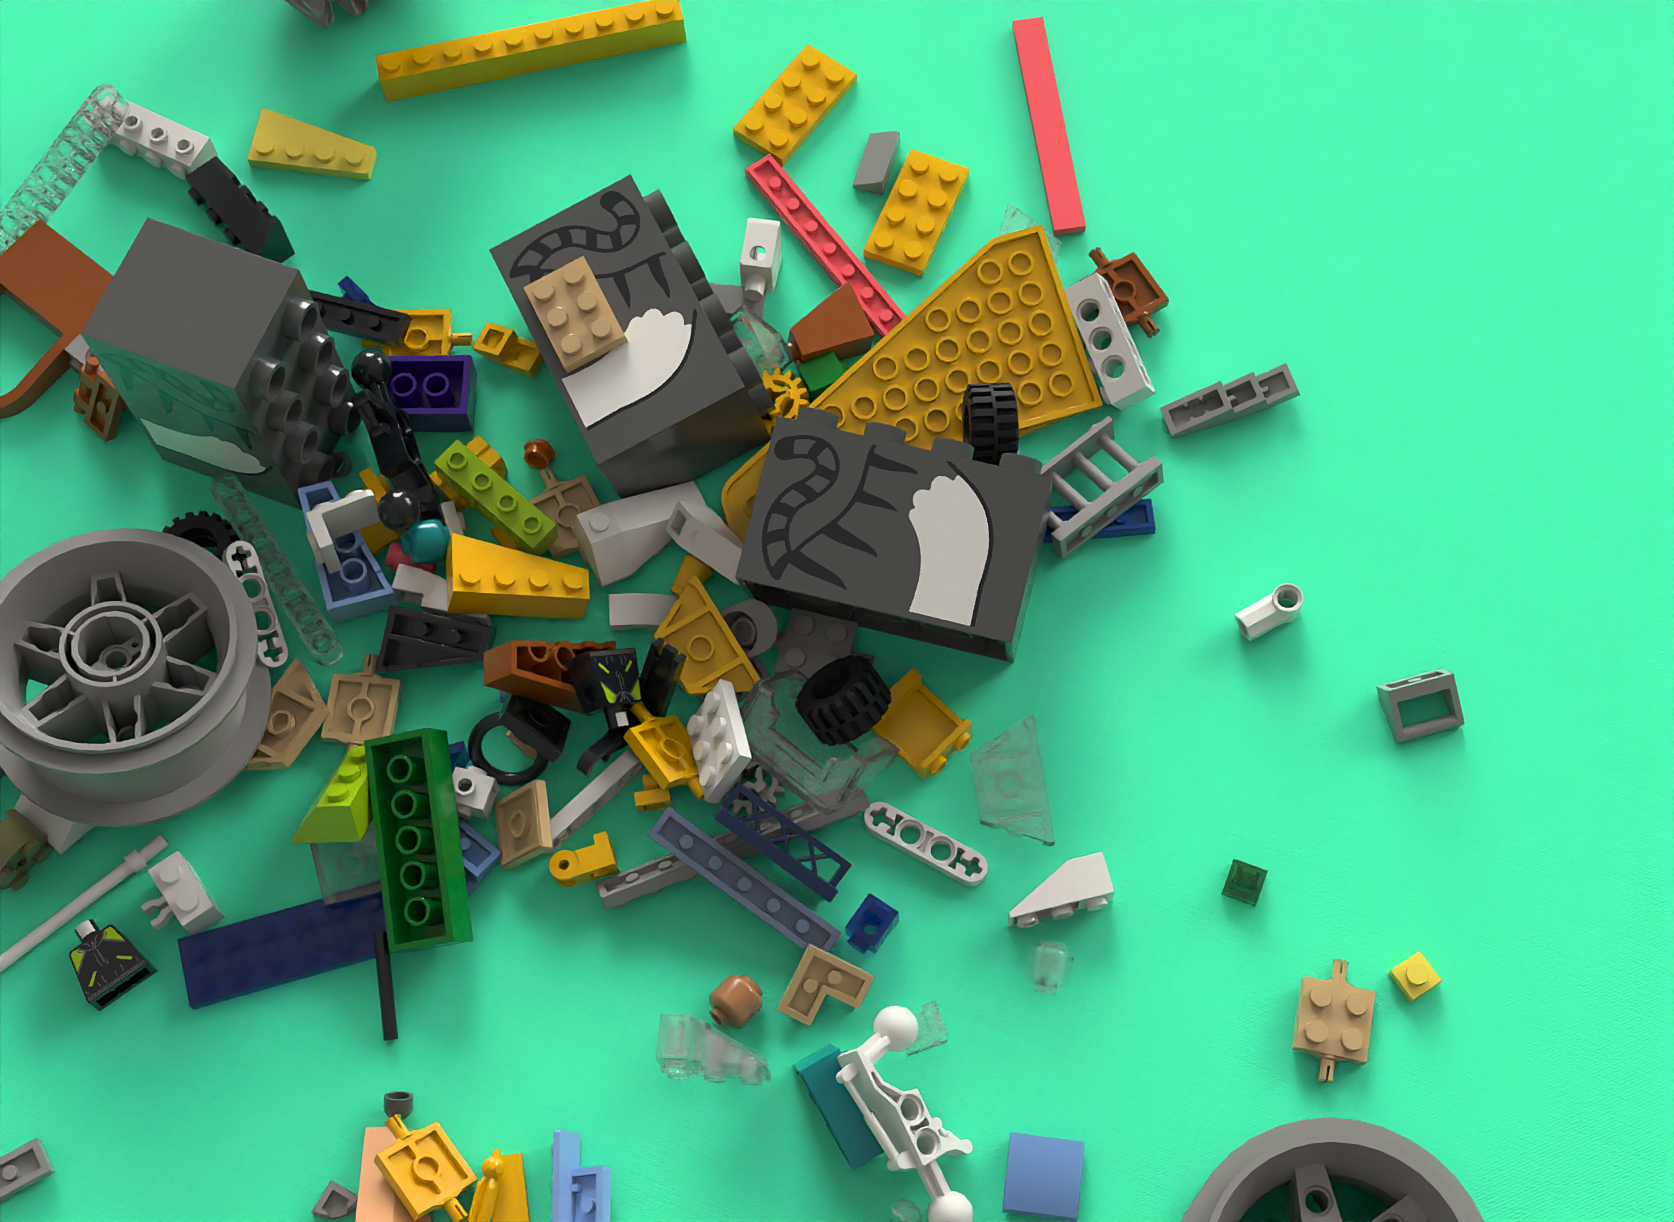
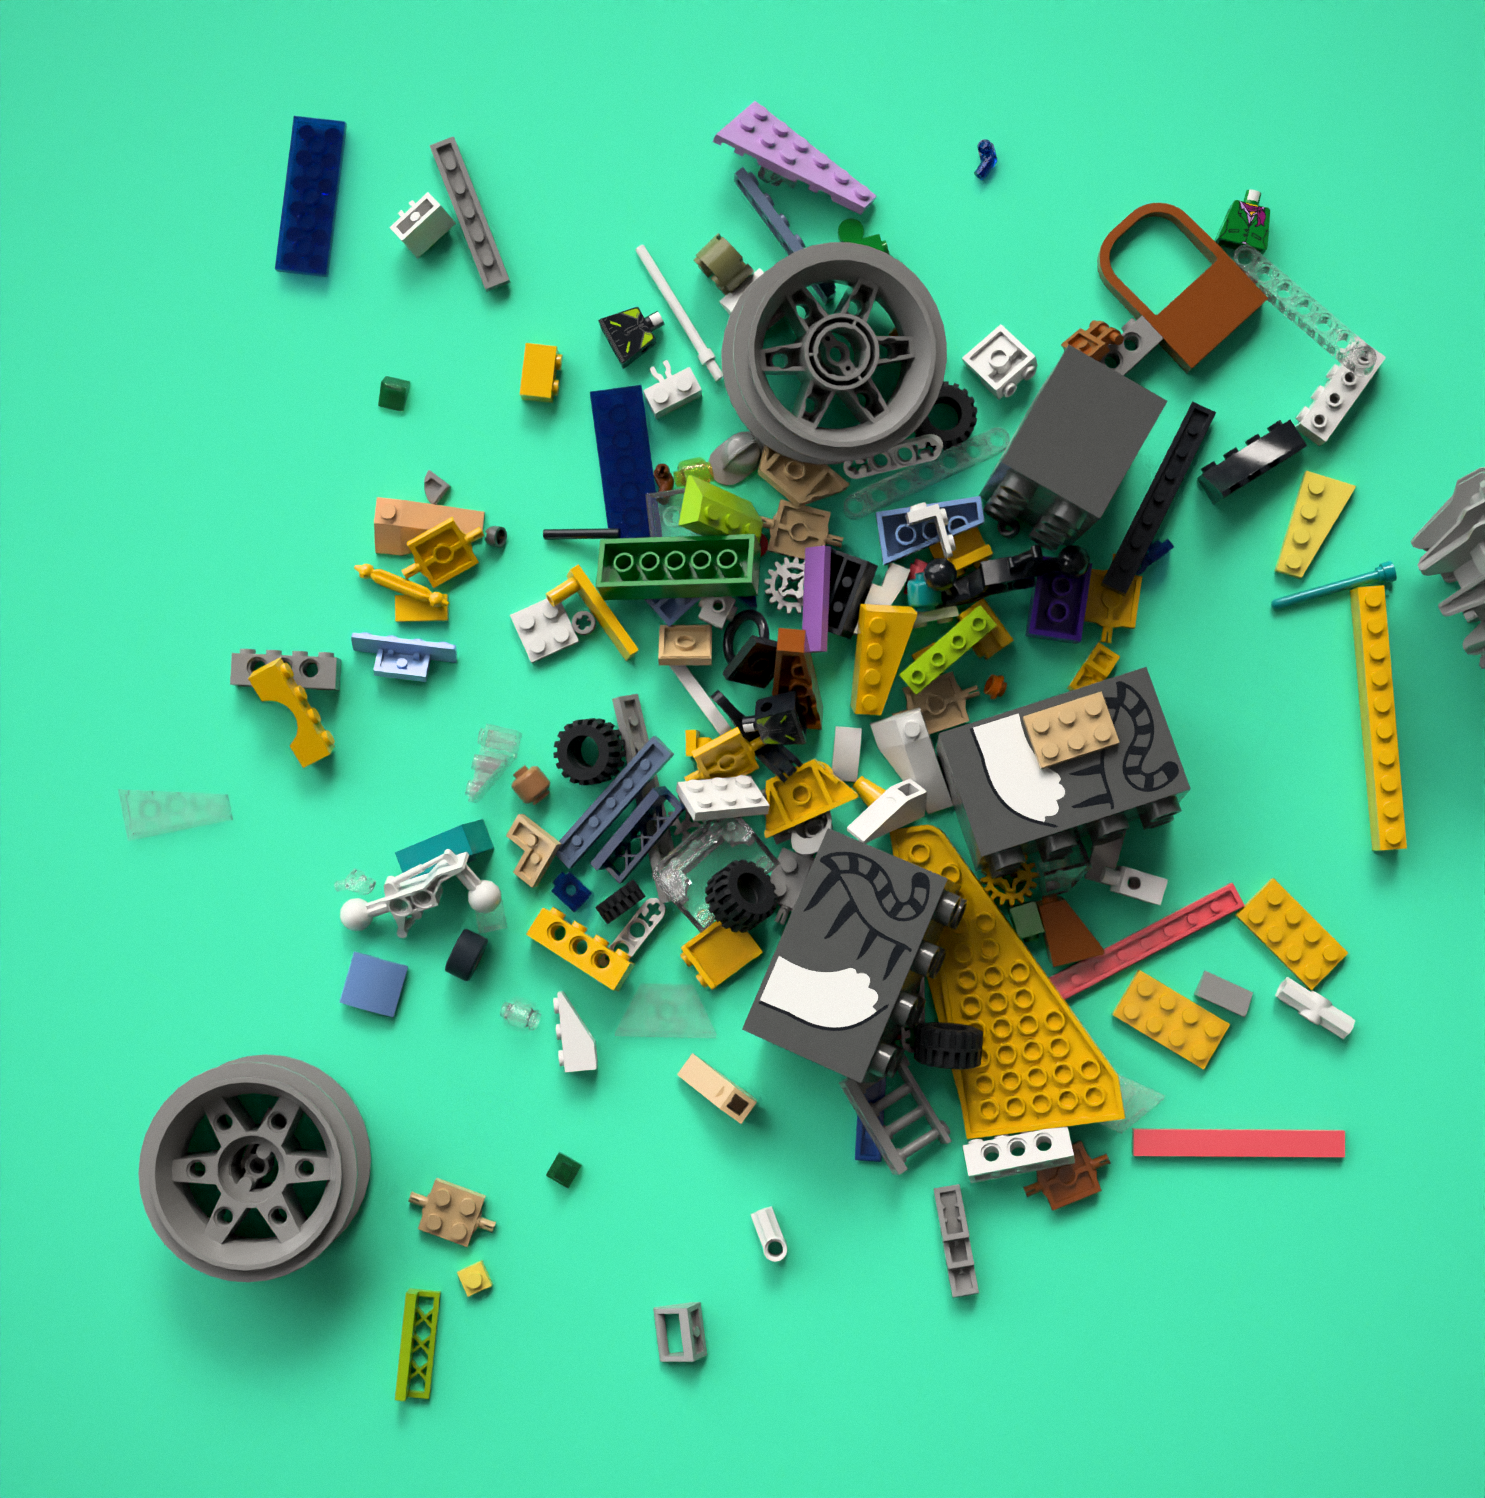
camera: 95 degrees right, 20 degrees up
(129, 497) = (1001, 362): none -> white plate
(166, 1076) = (539, 372): none -> yellow brick
(270, 804) = (736, 458): none -> light grey piece
(291, 858) = (696, 467): none -> clear yellow head
(302, 892) = (663, 478): none -> reddish brown arm
(363, 67) = (1384, 573): none -> teal piece
(432, 666) = (816, 596): none -> medium lavender tile
(439, 693) = (785, 575): none -> white gear
(454, 975) = (580, 583): none -> yellow piece
(499, 959) = (579, 616): none -> light grey bush
(520, 1019) = (544, 629): none -> white plate
(585, 863) = (650, 677): yellow leg -> none
(710, 933) = (570, 754): none -> black tyre
(875, 855) = (620, 901): none -> black tyre
(876, 67) = (1315, 1008): none -> white piece
(953, 841) = (544, 930): none -> yellow brick
(980, 1048) = (466, 955): none -> black wheel
(1098, 699) = (717, 1088): none -> tan slope
(1525, 1049) = (408, 1339): none -> lime fence

